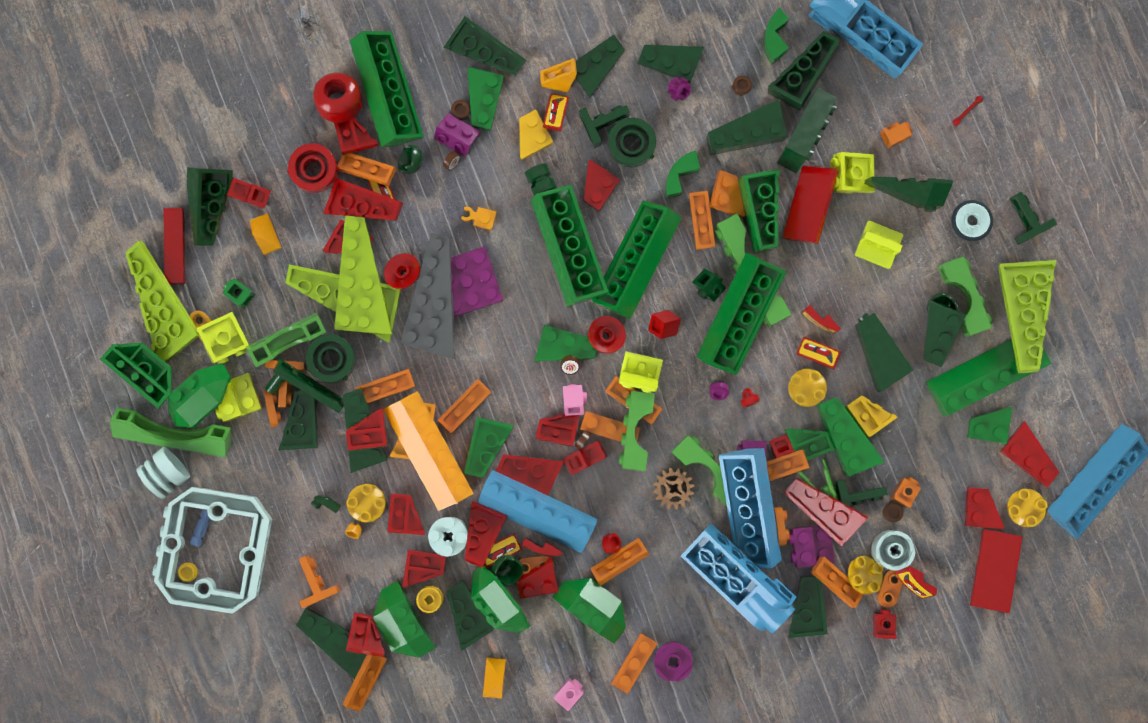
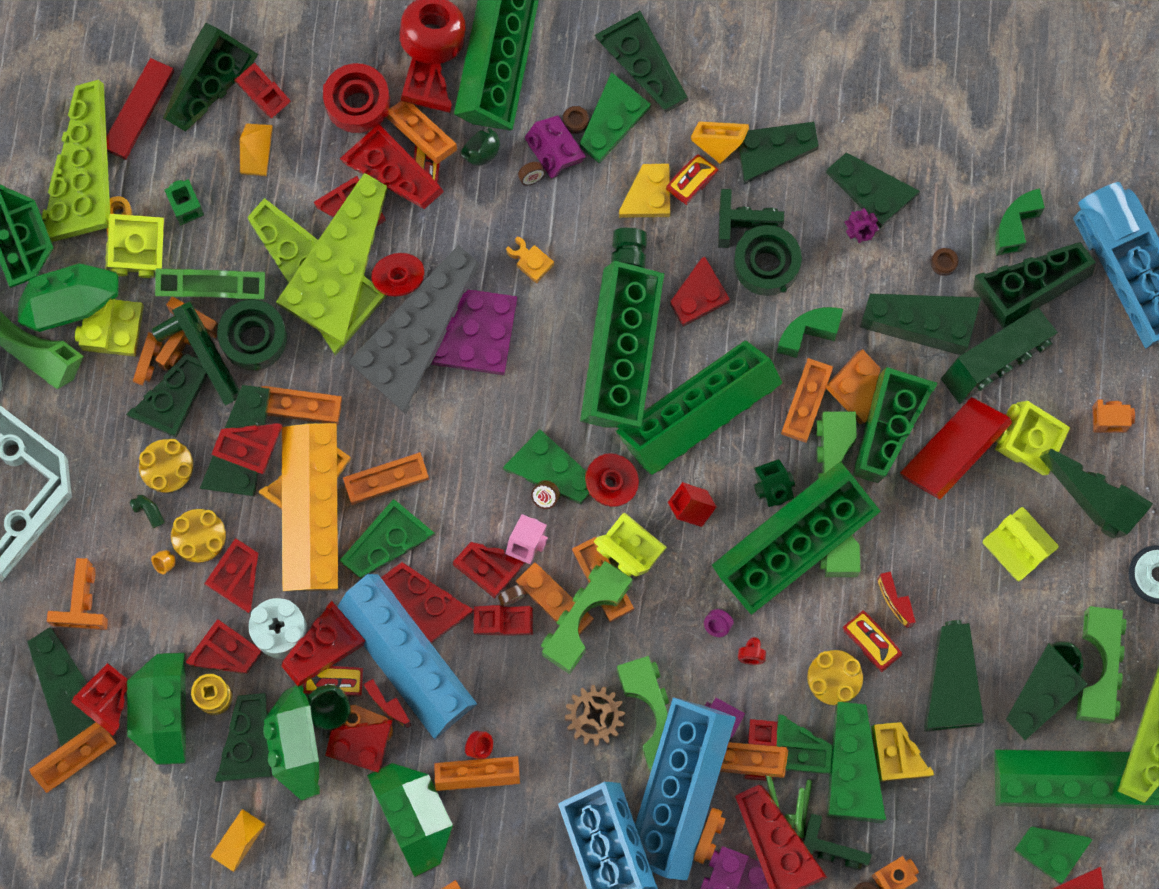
camera: 25 degrees right, 10 degrees down
(321, 469) = (165, 465): none -> yellow dish

